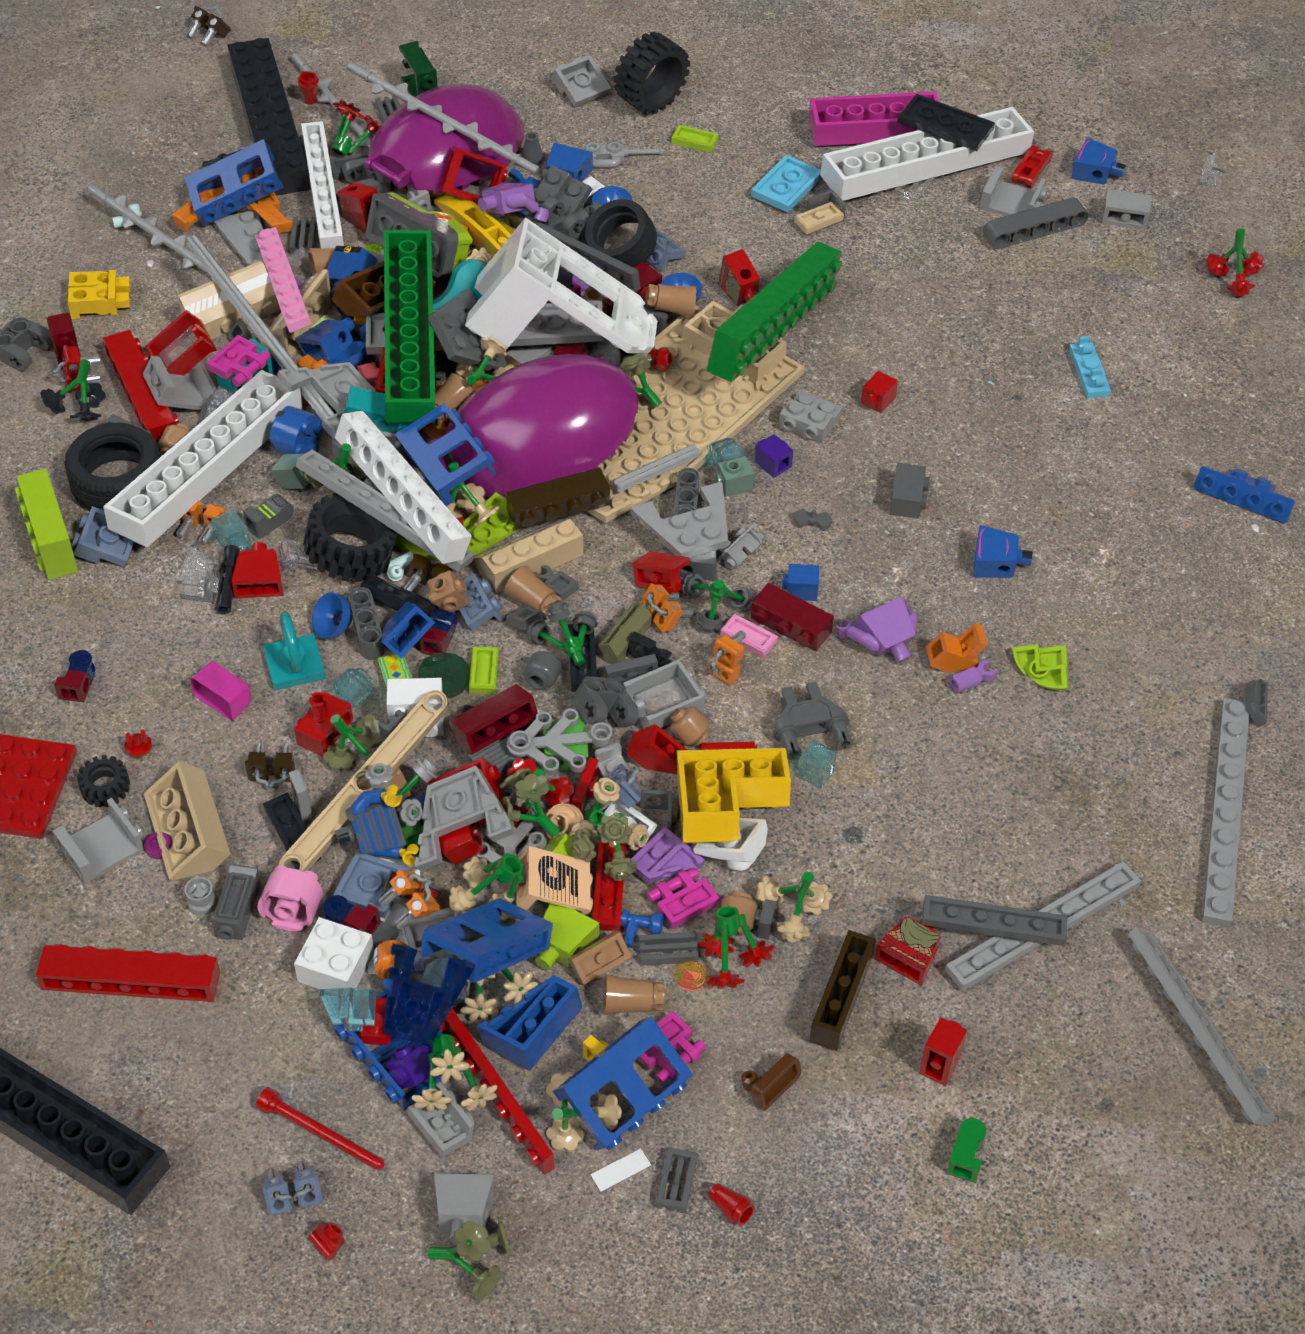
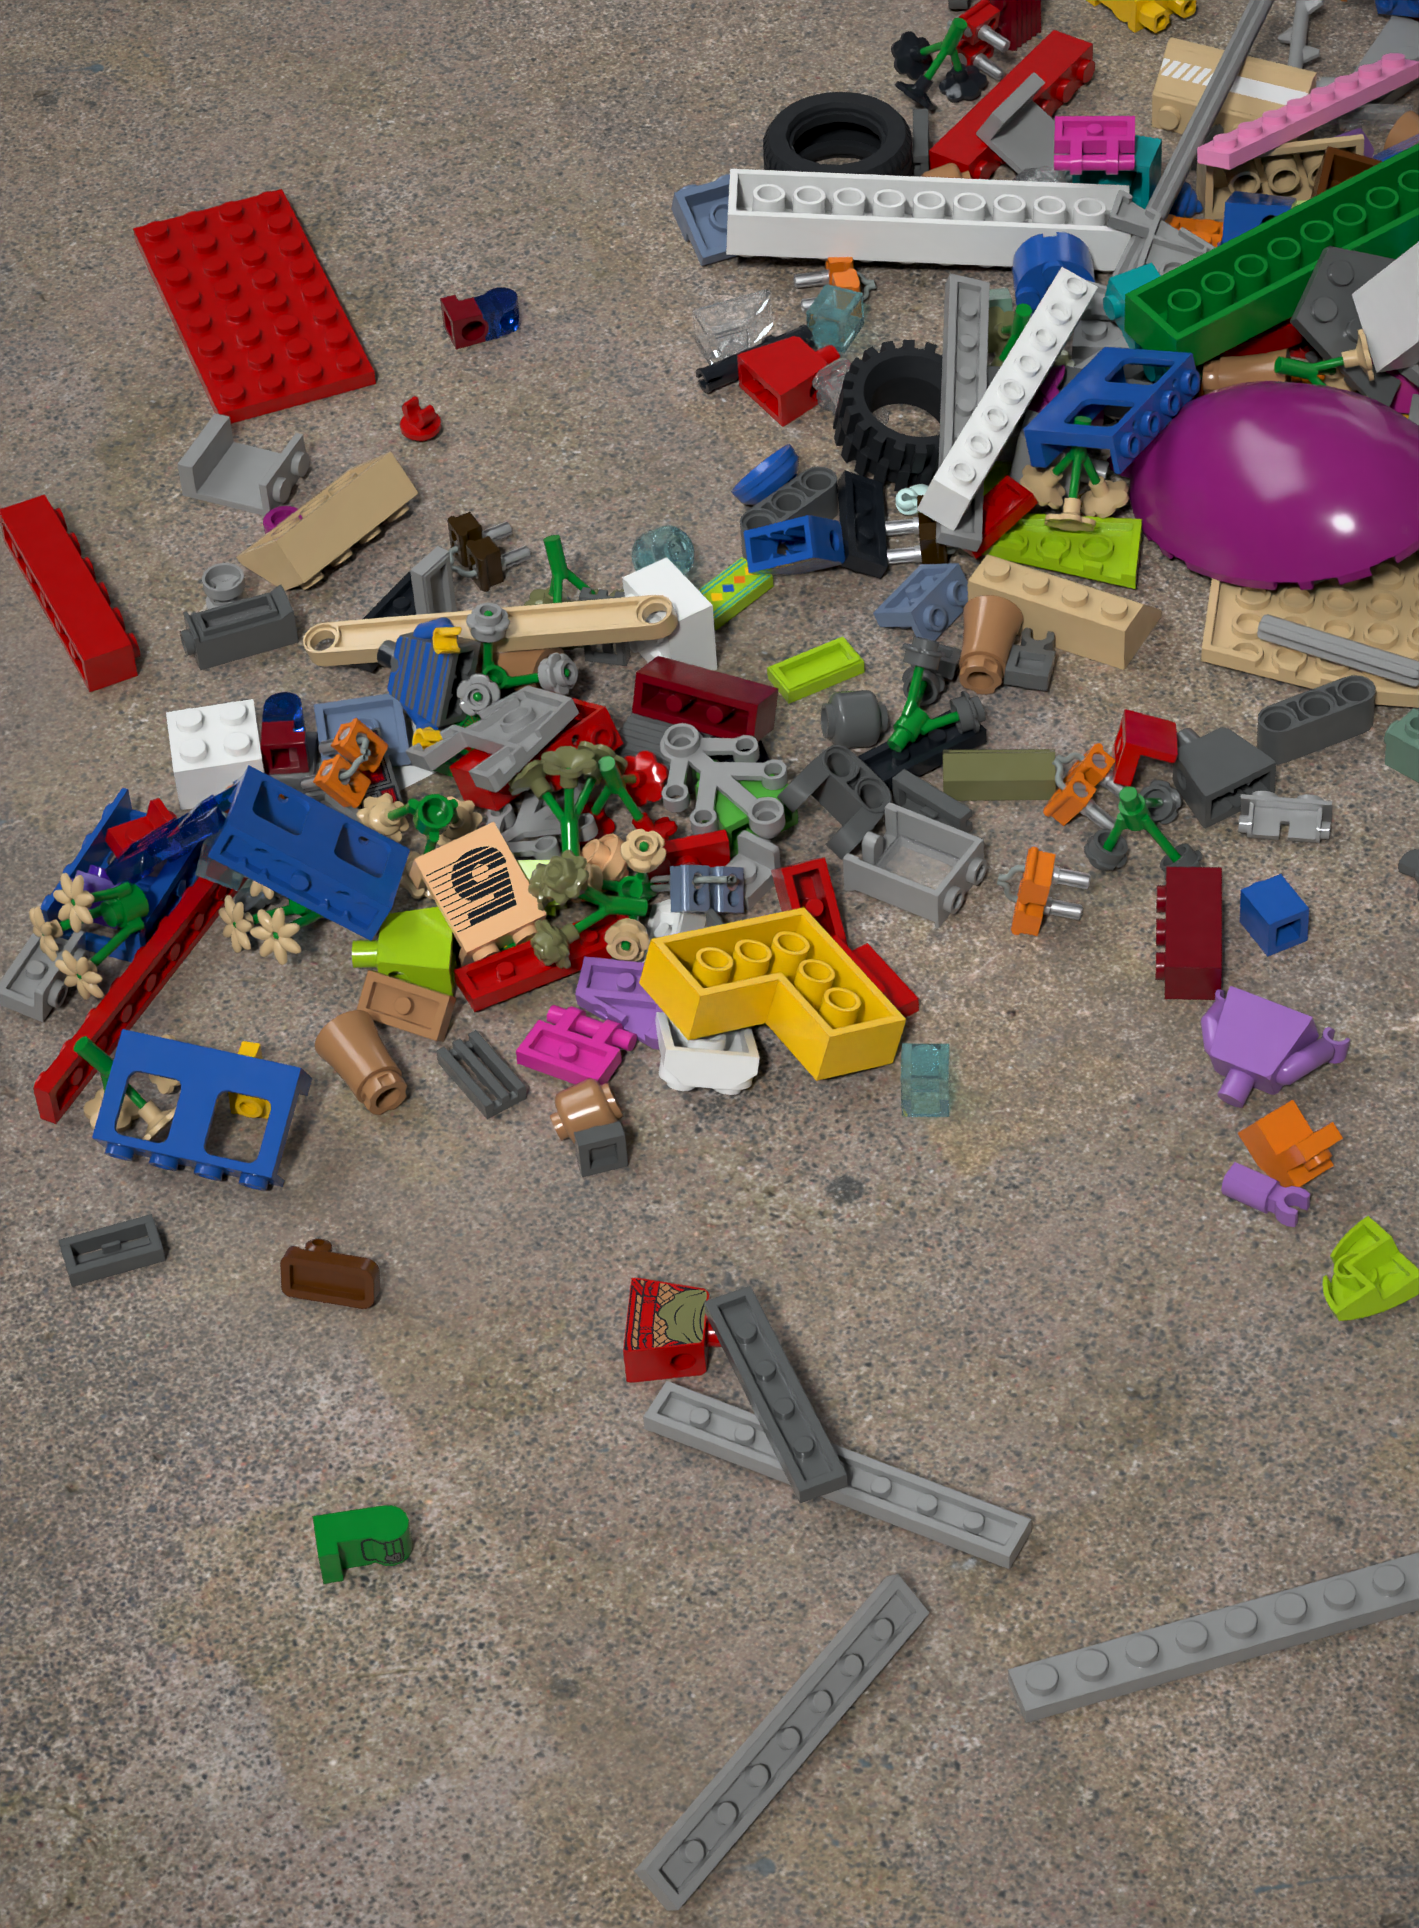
camera: 65 degrees right, 5 degrees down
(45, 524) = (687, 147): lime brick -> none
(103, 768) = (327, 437): black tyre -> none
(182, 344) = (1111, 91): red window -> none
(221, 690) = (560, 445): dark pink piece -> none
(268, 515) = (882, 327): dark grey leg -> none
(290, 898) = (271, 660): bright pink brick -> none
(294, 658) = (674, 484): teal tile -> none
(315, 729) = (591, 554): red brick -> none
(350, 1007) = (128, 789): clear light blue slope -> none
(440, 632) = (837, 591): leg -> none
(448, 592) = (899, 555): medium nougat brick -> none
(449, 667) = (770, 634): clear green tile -> none
(533, 1024) = (247, 986): blue wedge -> none
(558, 498) = (1175, 576): dark brown brick -> none
(620, 1169) = (96, 1190): white sticker -> none
(632, 921) = (495, 1013): blue piece -> none
(643, 646) = (984, 804): black plate -> none
(677, 1033) = (328, 1136): dark pink plate -> none
(689, 726) = (878, 911): medium nougat head -> none
(691, 976) = (453, 1118): clear yellow tile -> none
(692, 531) = (1247, 743): light grey wing -> none
(726, 925) = (525, 1114): plant -> none
(732, 1204) = (103, 1321): red cone -> none
(757, 639) = (1123, 908): bright pink tile -> none
(809, 718) = (1009, 1034): dark grey connector -> none
(811, 896) = (649, 1134): tan plant -> none
(842, 990) = (529, 1277): dark brown brick -> none
(943, 1051) = (496, 1430): red brick -> none

